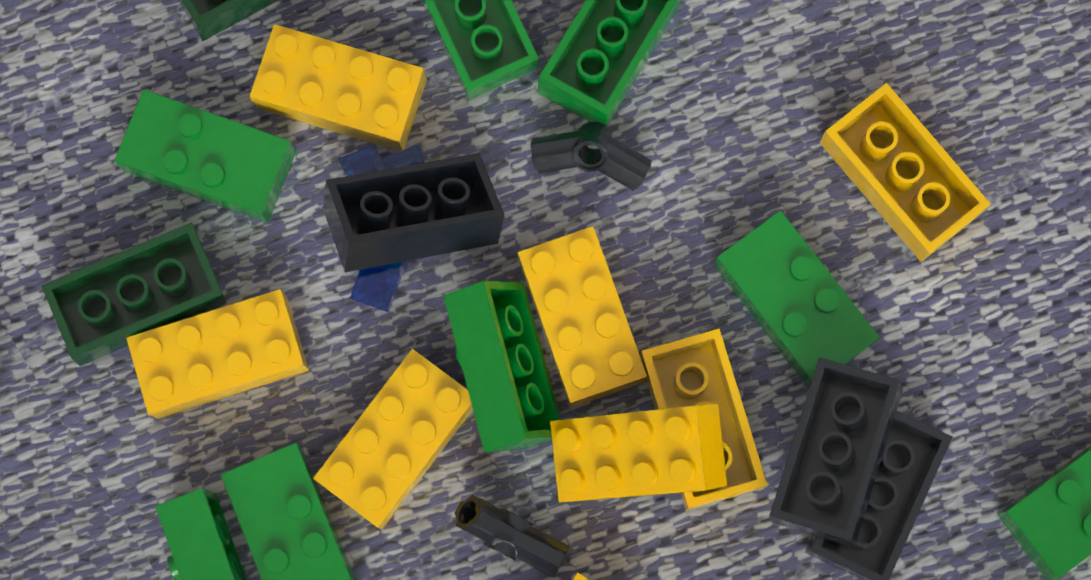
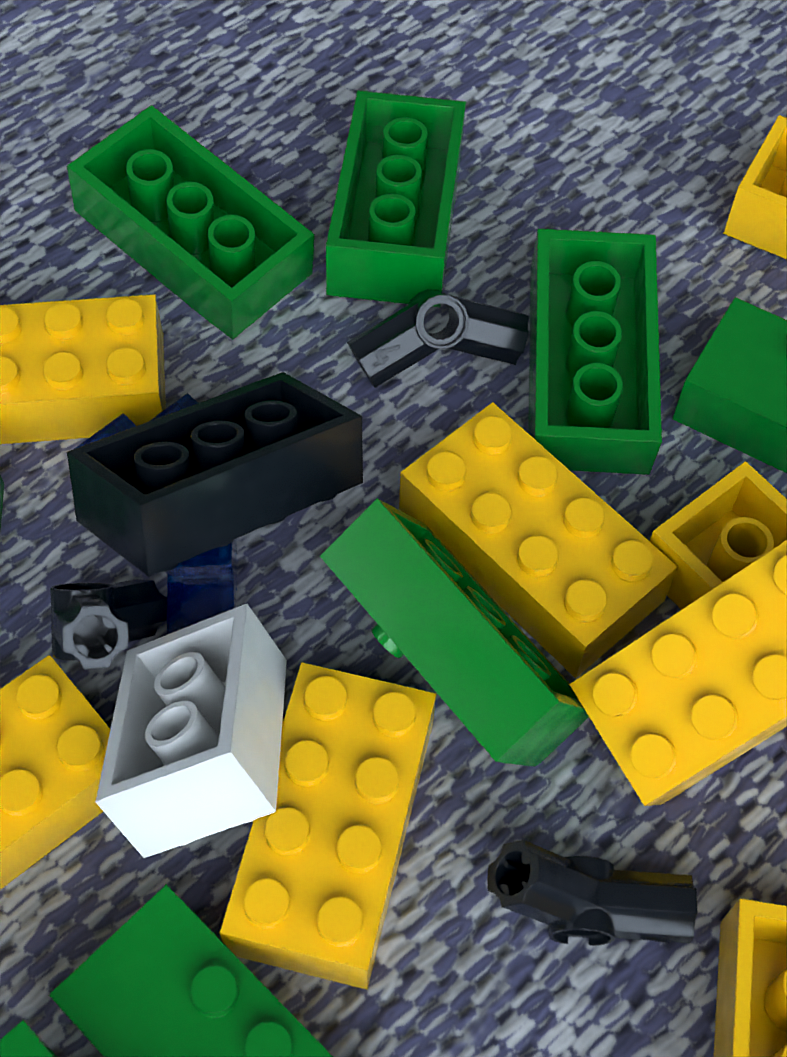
camera: 30 degrees left, 20 degrees down
(307, 279) = (100, 619): none -> black piece
(340, 367) = (195, 733): none -> white brick
(678, 206) = (595, 350): none -> green brick

